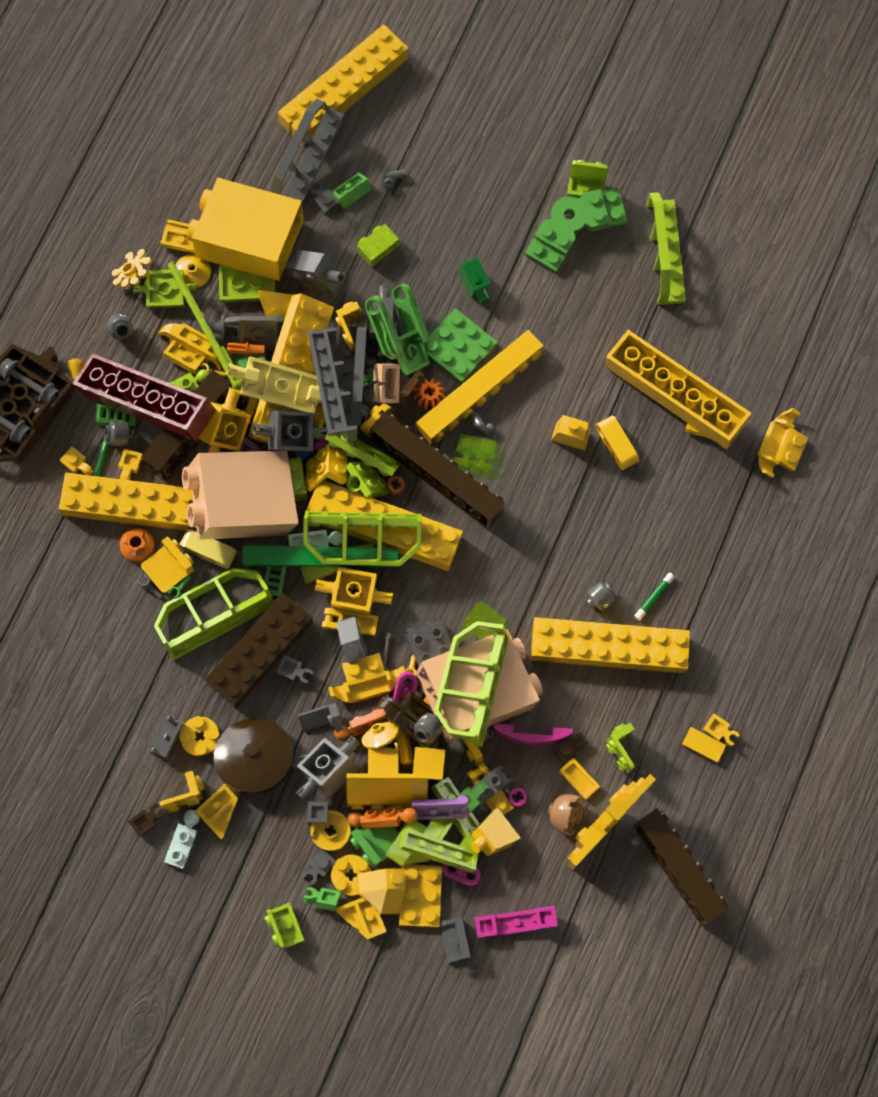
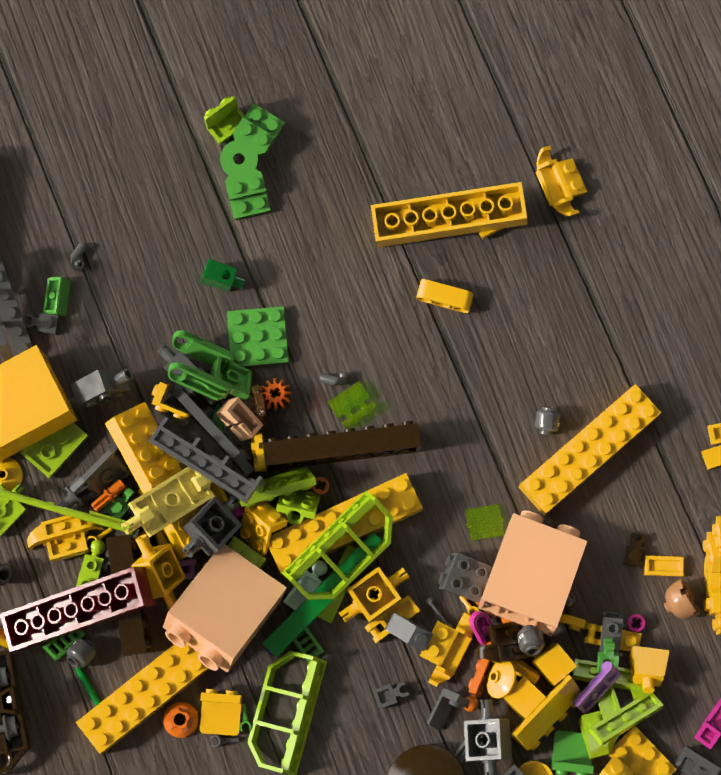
camera: 40 degrees left, 5 degrees up
(76, 461) = (69, 705): yellow plate -> none
(129, 462) = (111, 666): yellow plate -> none
(208, 549) = (242, 668): light yellow beam -> none
(259, 650) = (351, 706): dark brown brick -> none
(274, 303) = (95, 439): yellow wing -> none
(377, 245) = (121, 319): lime brick -> none
(382, 817) = (562, 735): orange plate -> none
(460, 875) = (655, 718): dark pink plate -> none
(479, 387) = (305, 353): yellow brick -> none
(490, 678) = (540, 561): lime plate -> none
(506, 732) = (618, 552): dark pink slope -> none
(571, 432) = (405, 322): yellow torso -> none
(614, 746) = (662, 508): lime bracket -> none
(654, 596) = (583, 382): green bar -> none
(669, 256) = (343, 119): lime plate -> none

